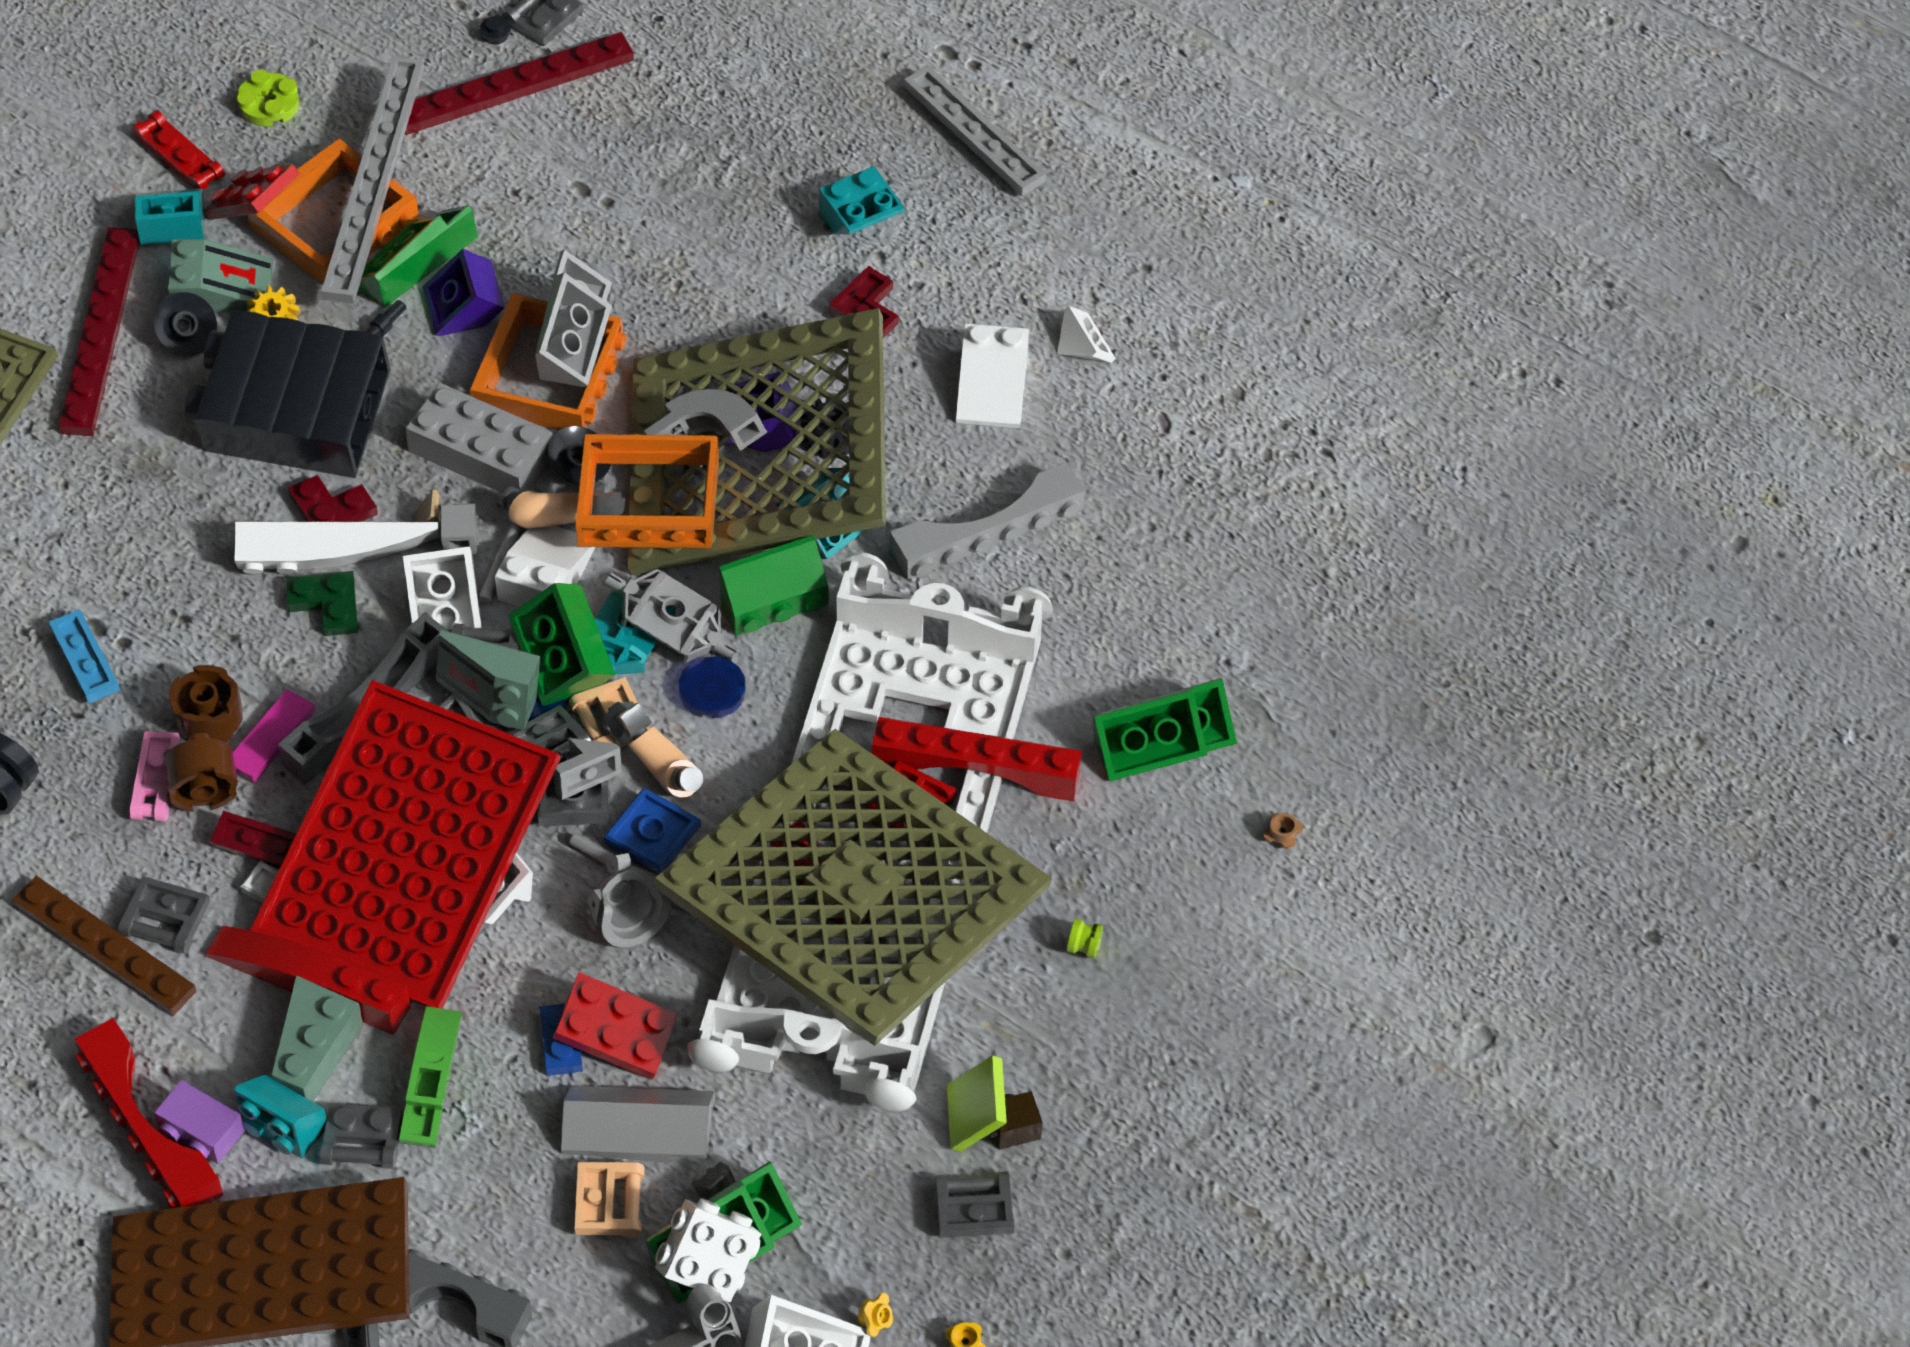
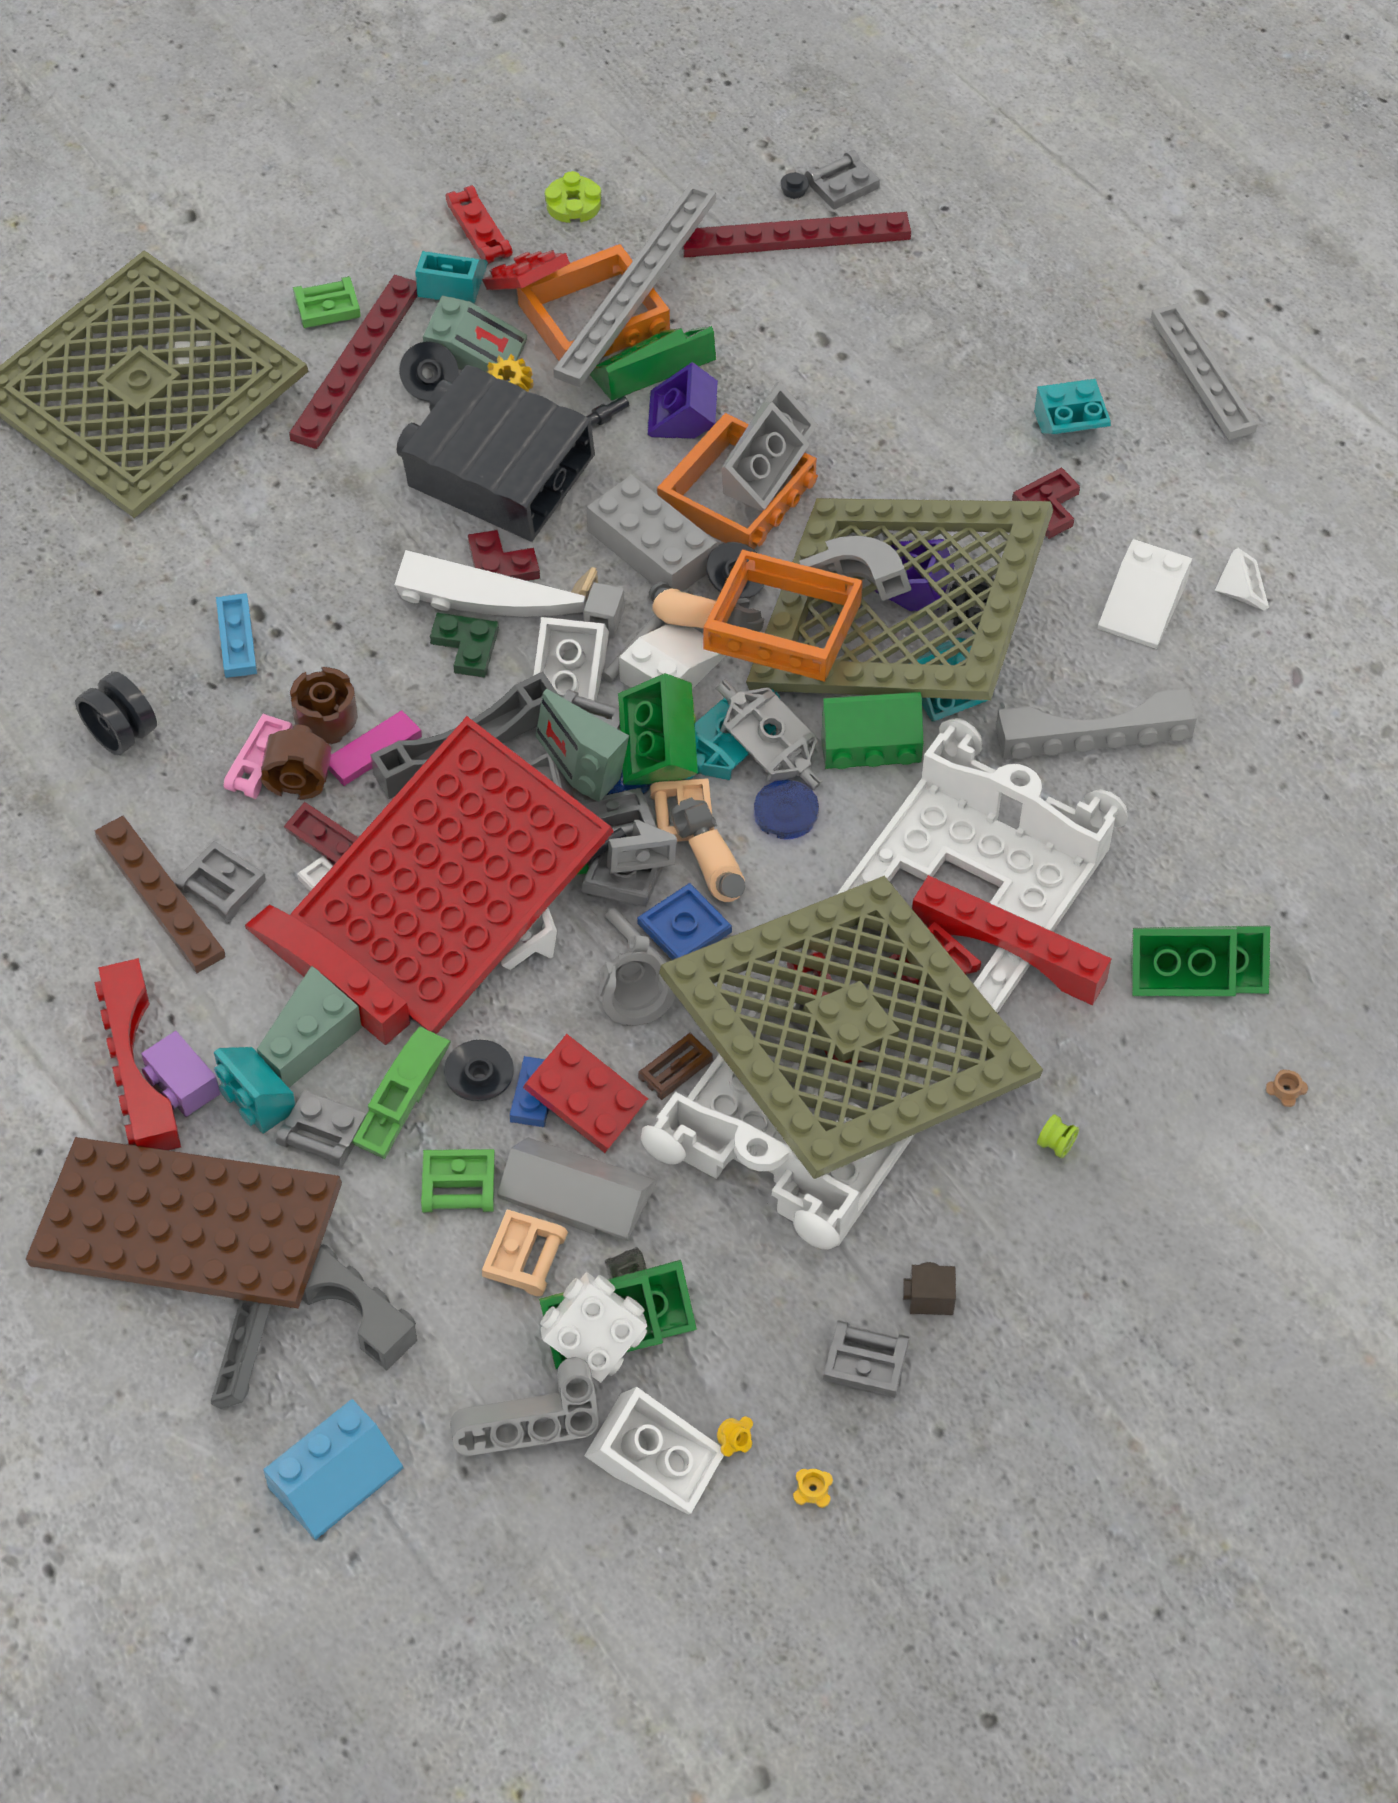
camera: 20 degrees right, 0 degrees up
(47, 275) = (327, 303): none -> bright green plate
(499, 1020) = (479, 1058): none -> black dish
(516, 1137) = (455, 1170): none -> bright green plate
(704, 979) = (683, 1075): none -> reddish brown tile
(976, 1103) = (898, 1262): lime tile -> none

